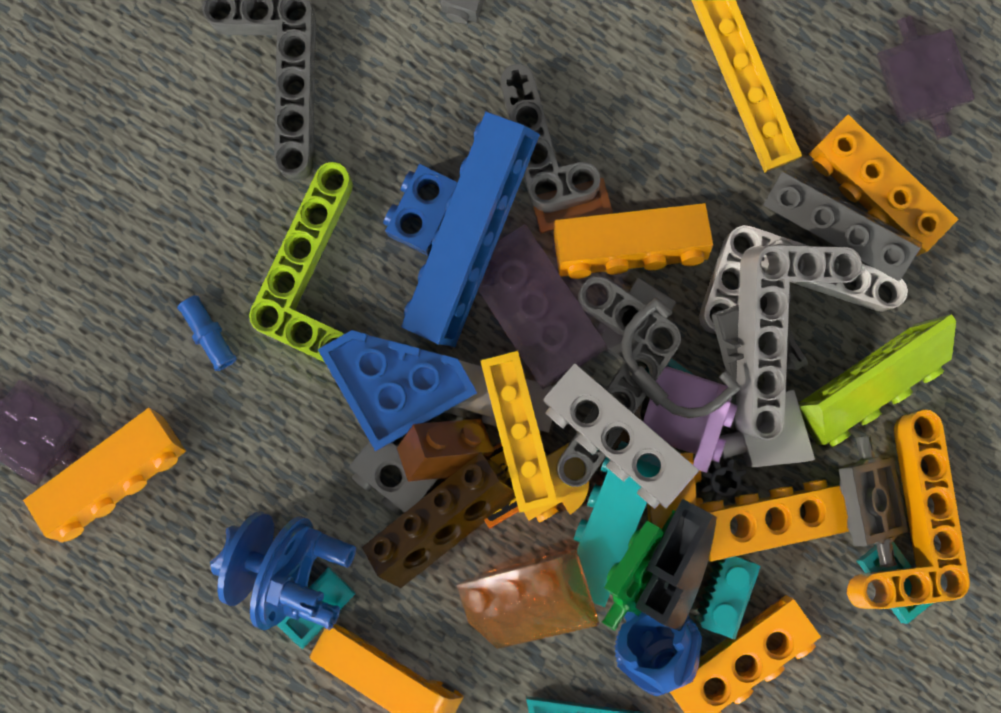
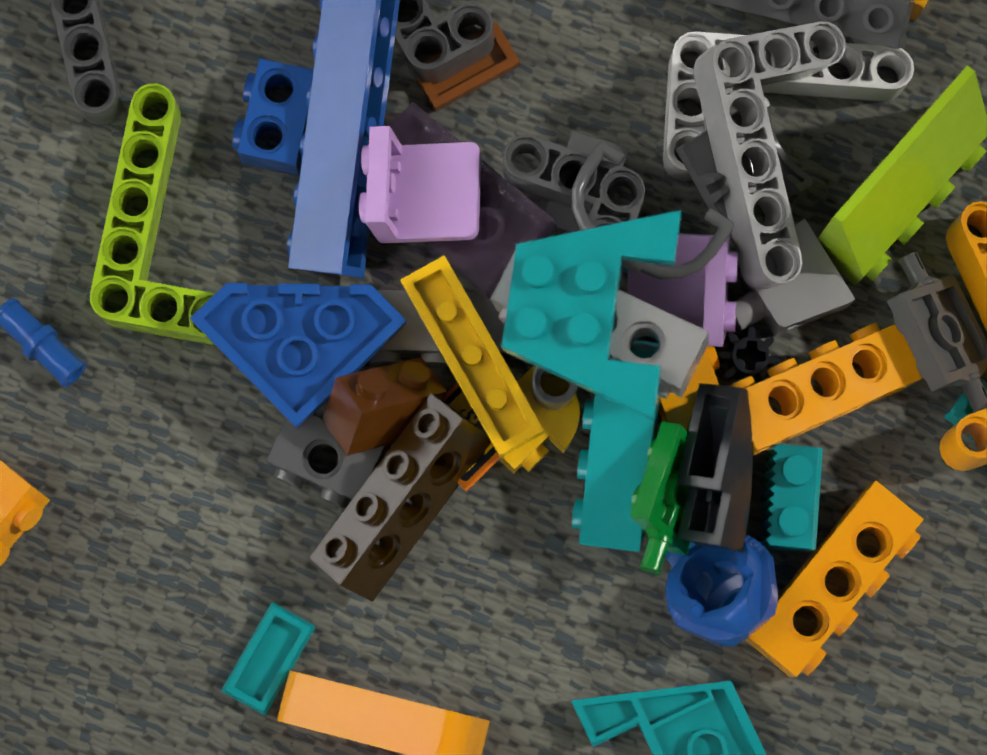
camera: 20 degrees left, 5 degrees down
(277, 570) = (210, 612): blue piece -> none
(513, 295) = (420, 189): none -> lavender bracket
(529, 600) = (542, 570): clear orange slope -> none
(598, 420) = (567, 303): none -> teal wing
(632, 240) = (554, 87): light orange brick -> none

